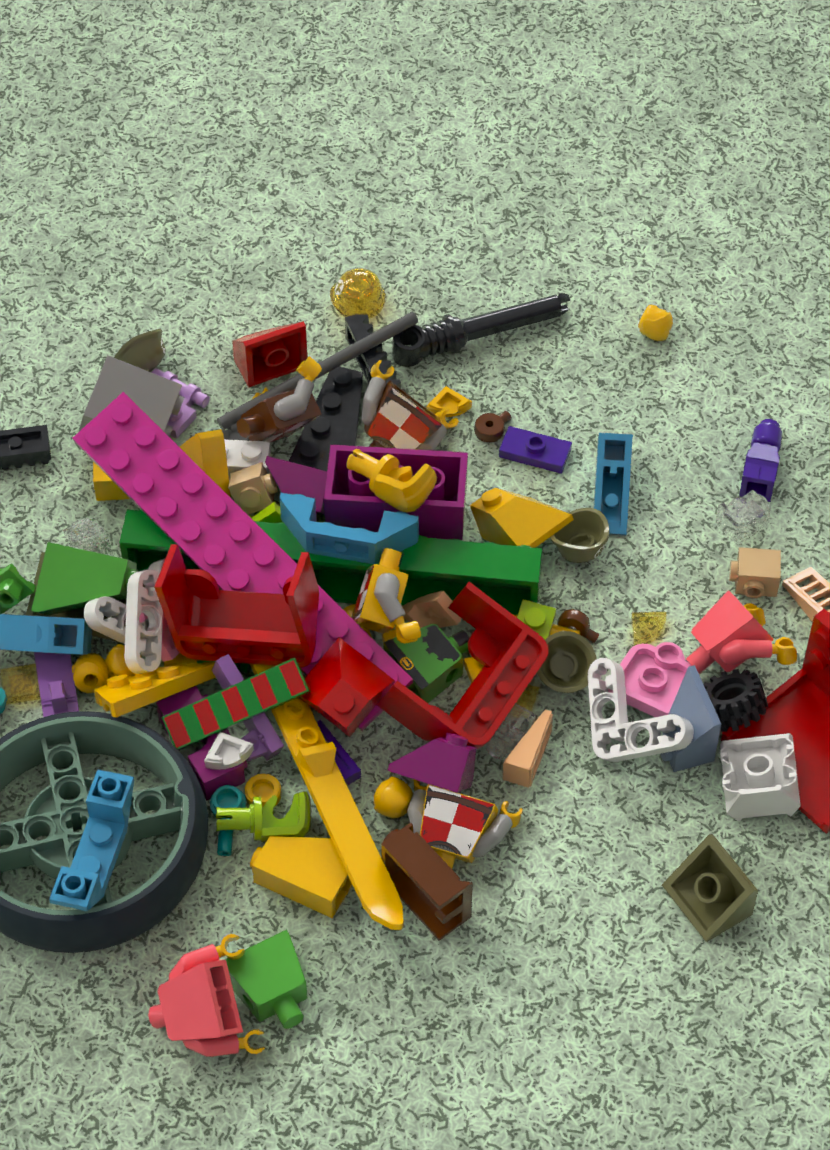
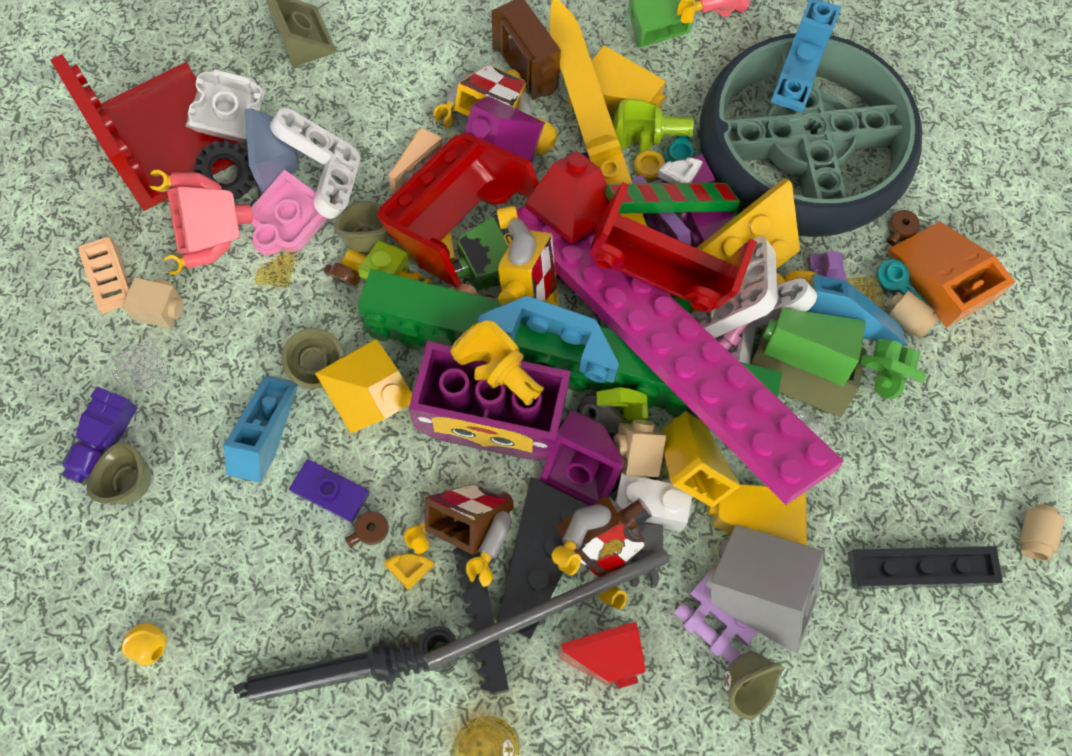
camera: 175 degrees left, 15 degrees up
(724, 423) = (119, 476): none -> olive helmet

